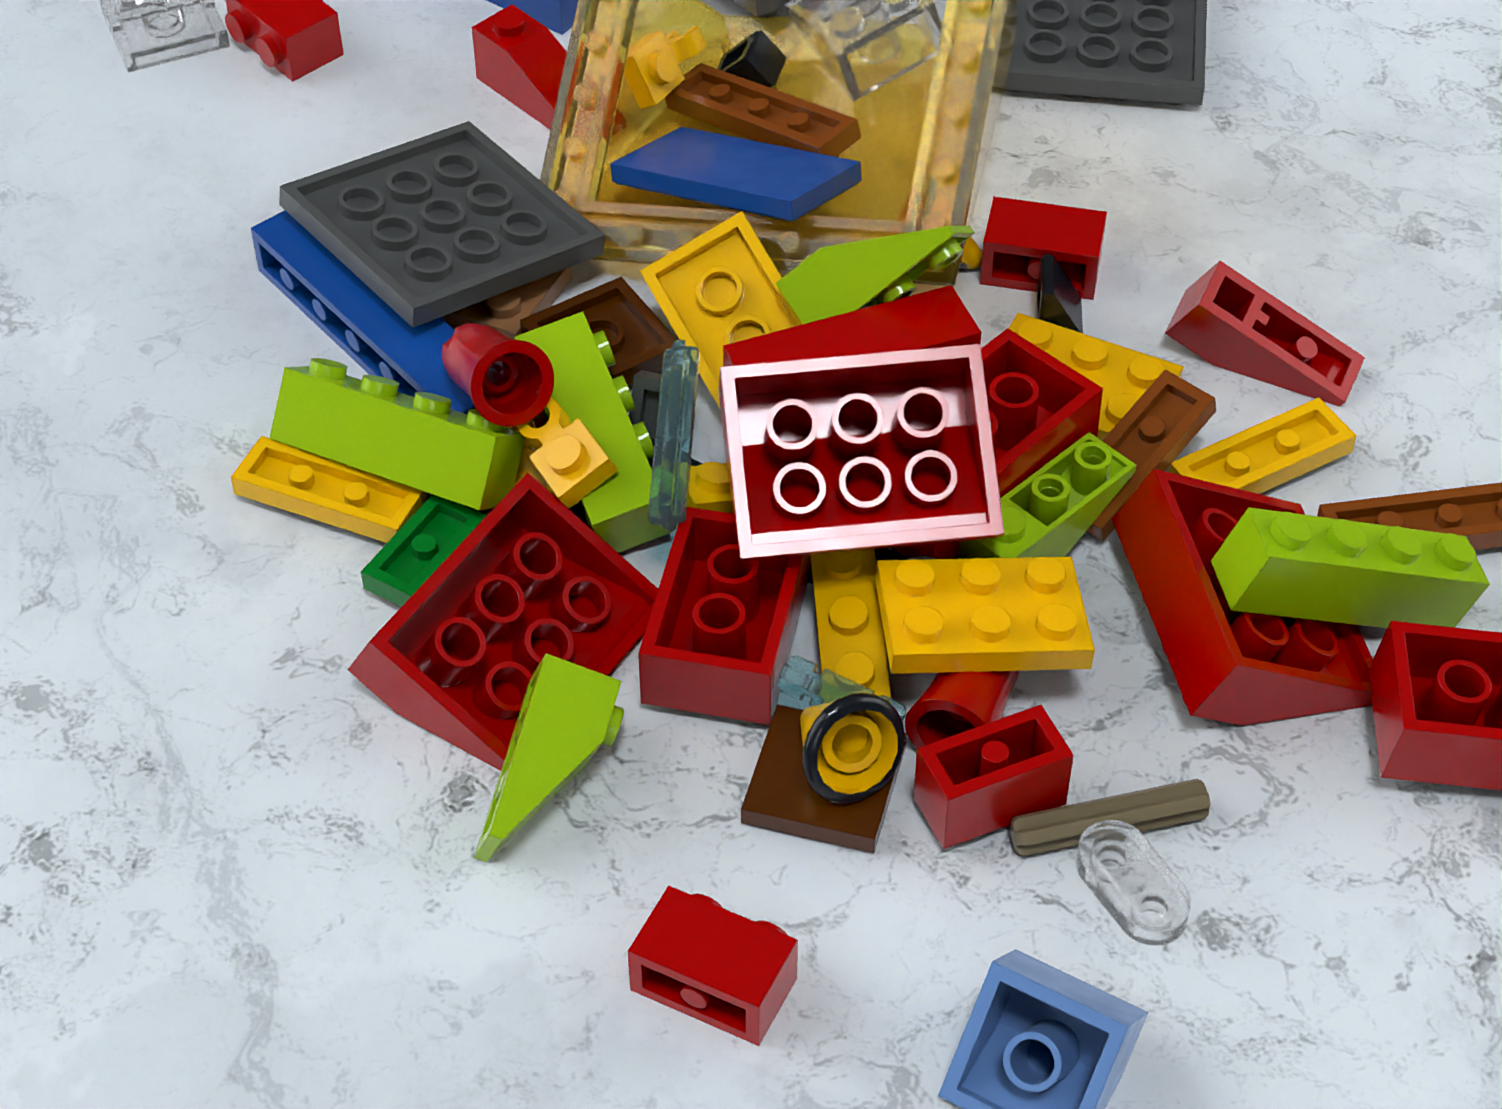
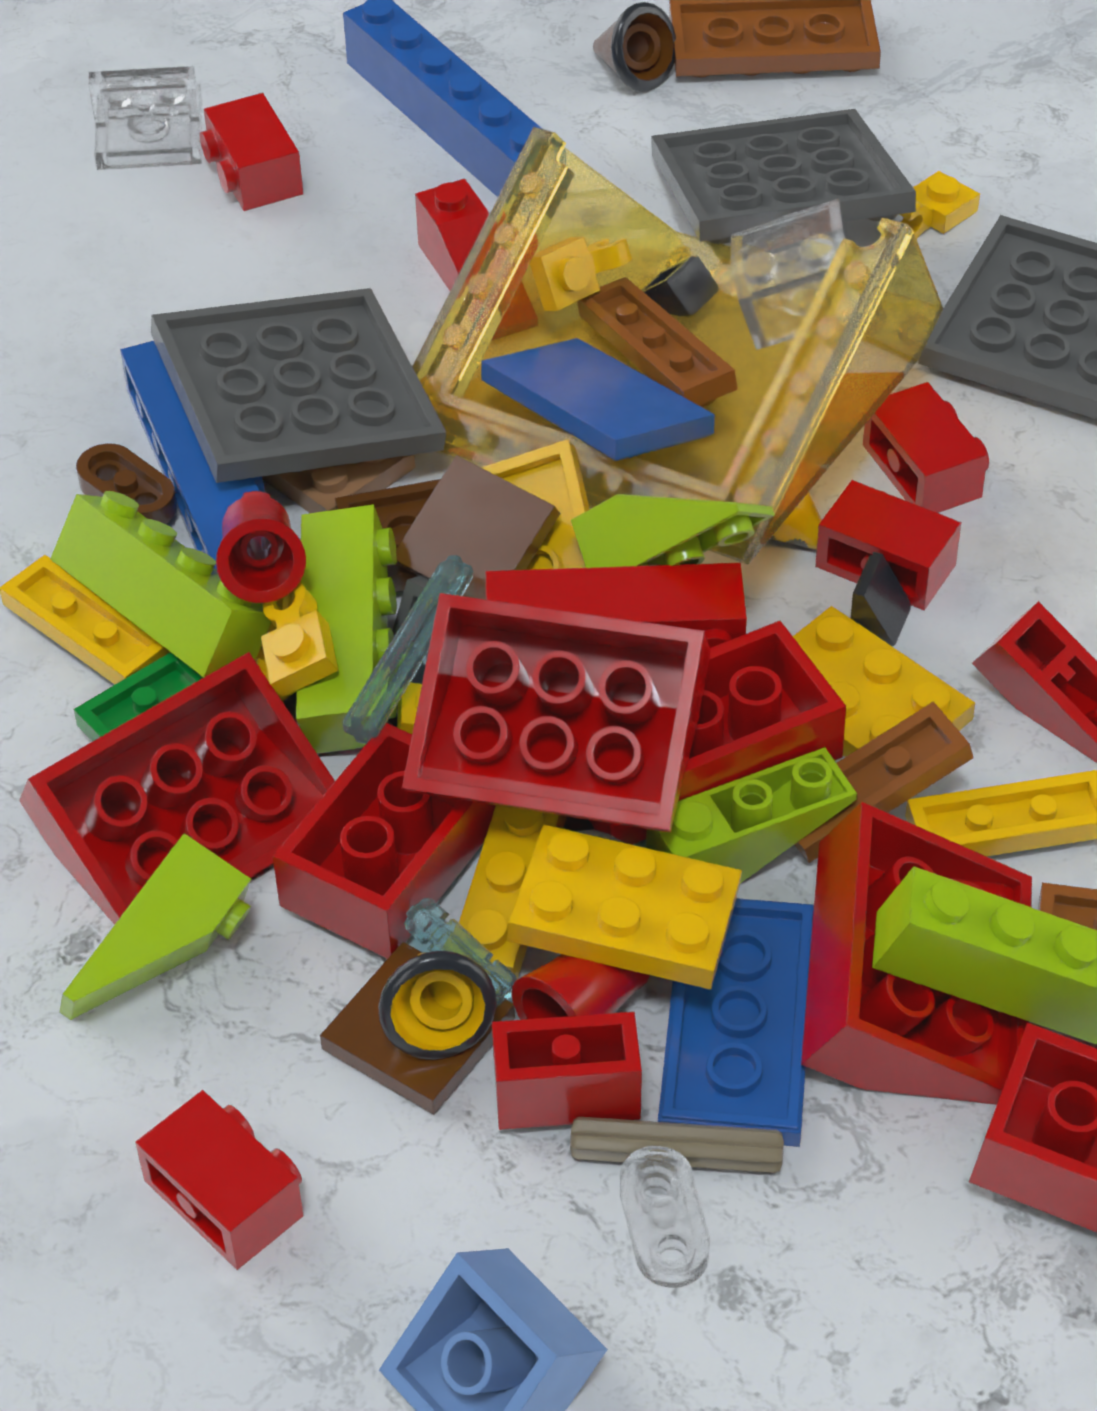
camera: 20 degrees right, 0 degrees up
(294, 343) = (122, 471): none -> reddish brown plate
(681, 301) = (481, 521): none -> reddish brown tile
(1040, 158) = (926, 449): none -> red brick
(1126, 710) = (740, 1044): none -> blue tile

